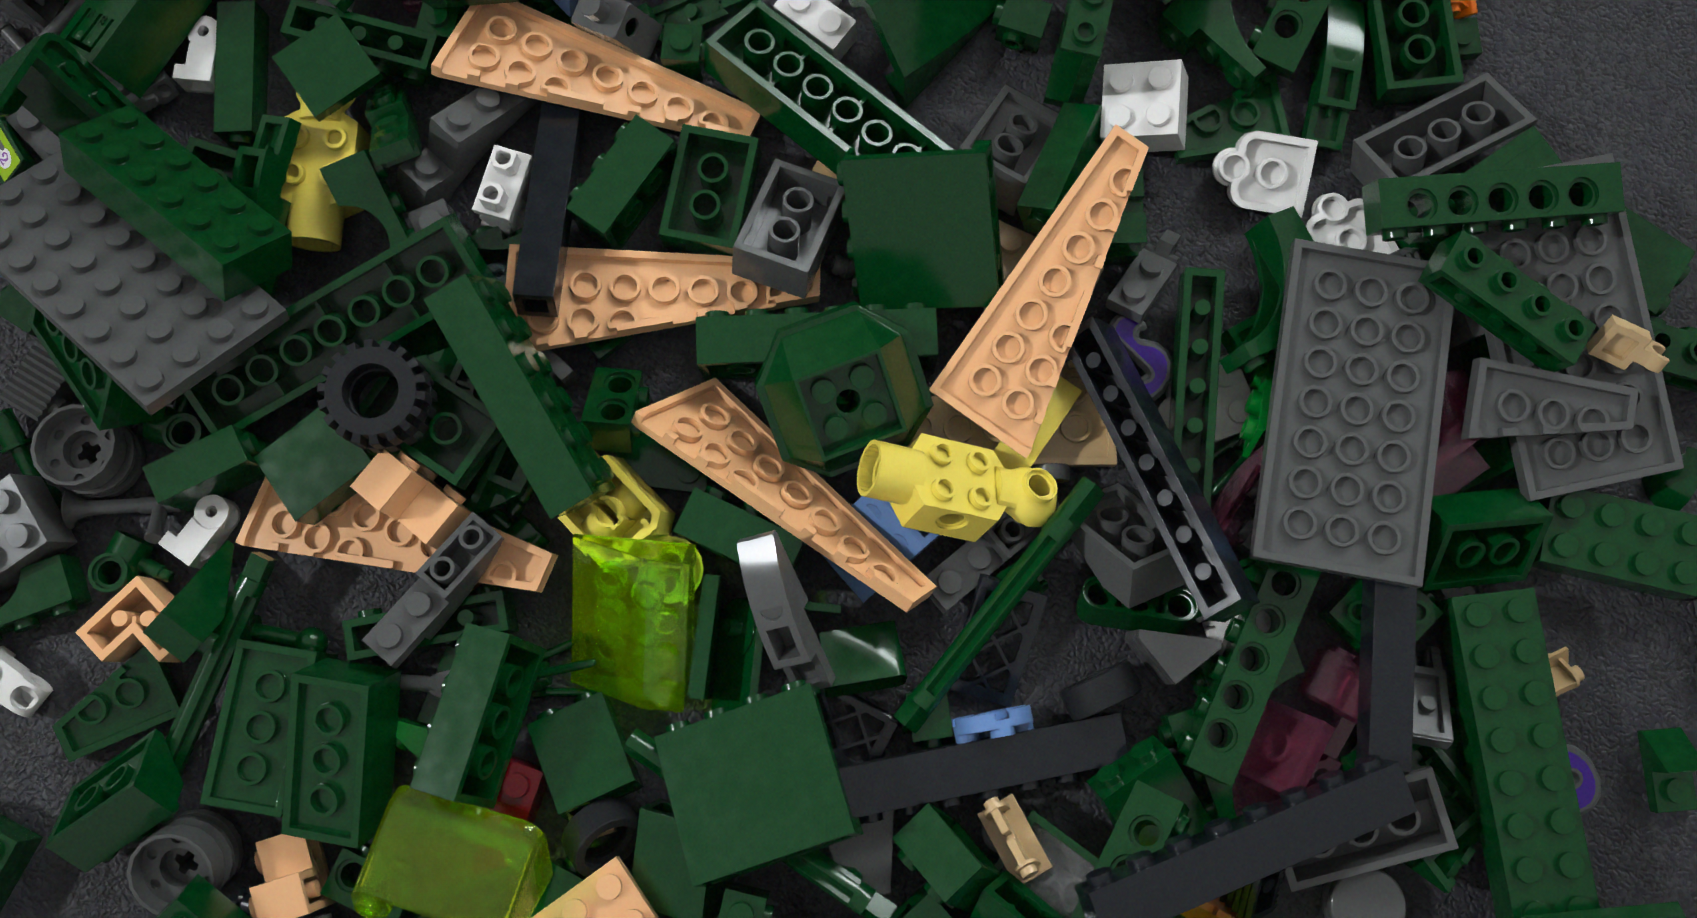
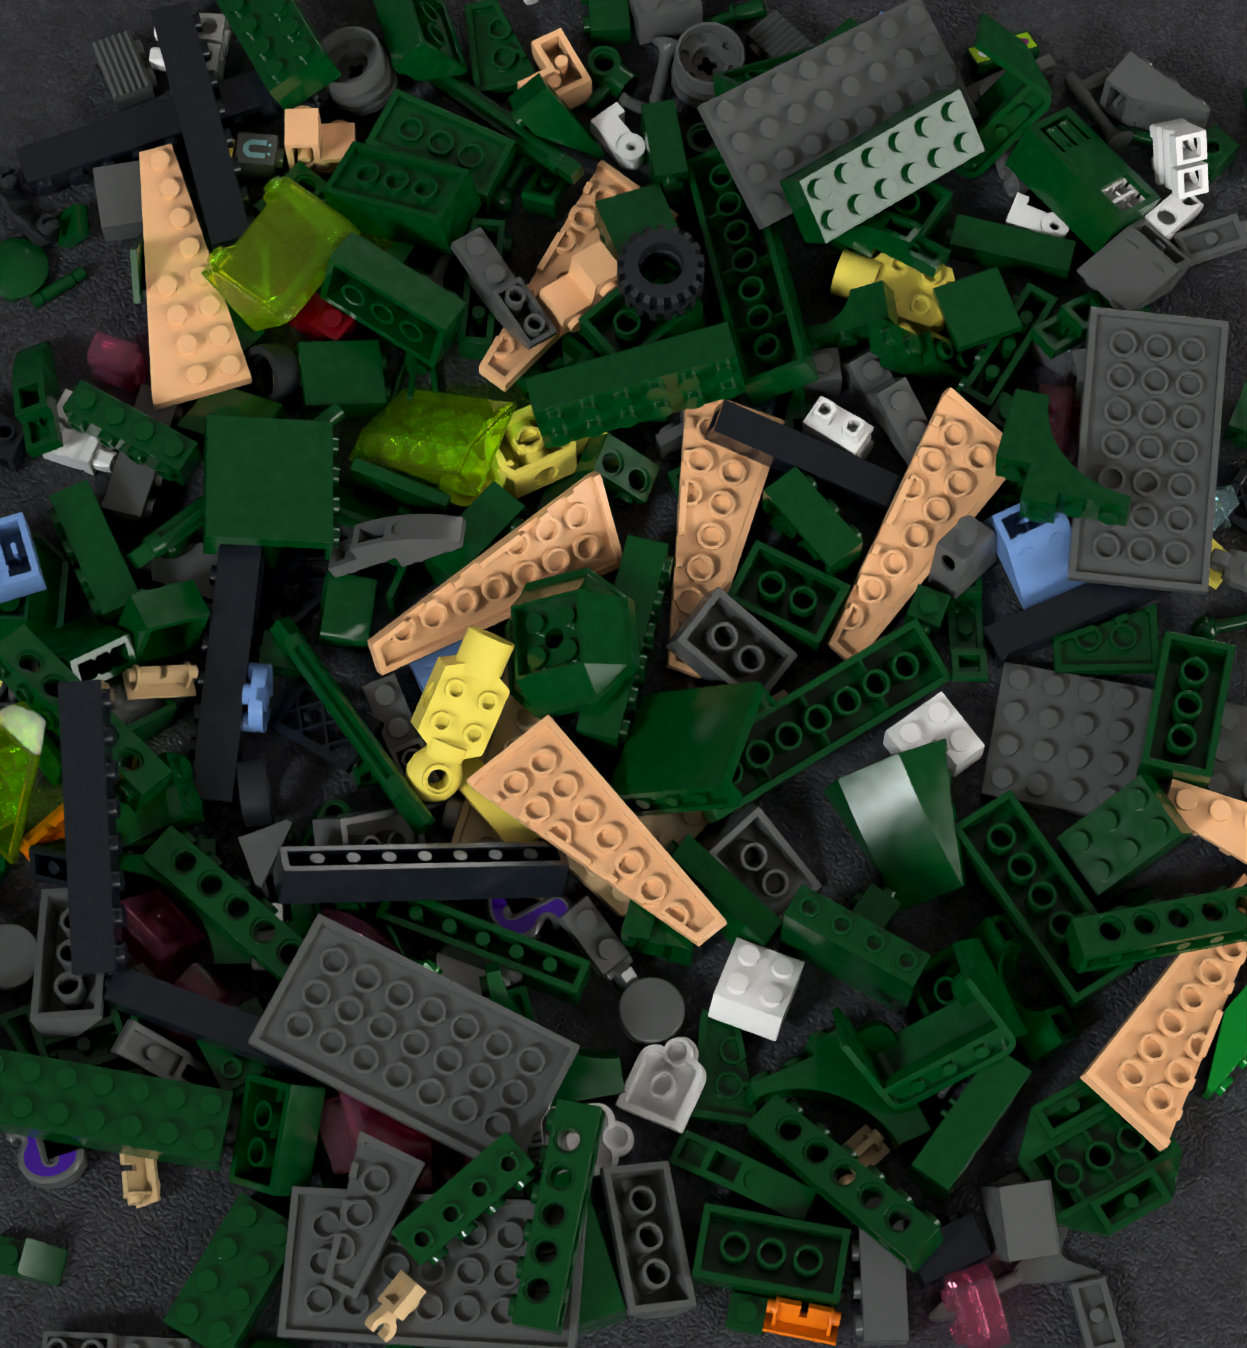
camera: 105 degrees right, 10 degrees down
(292, 593) = (544, 193): none -> dark green slope
(1195, 209) = (651, 1011): none -> dark grey head

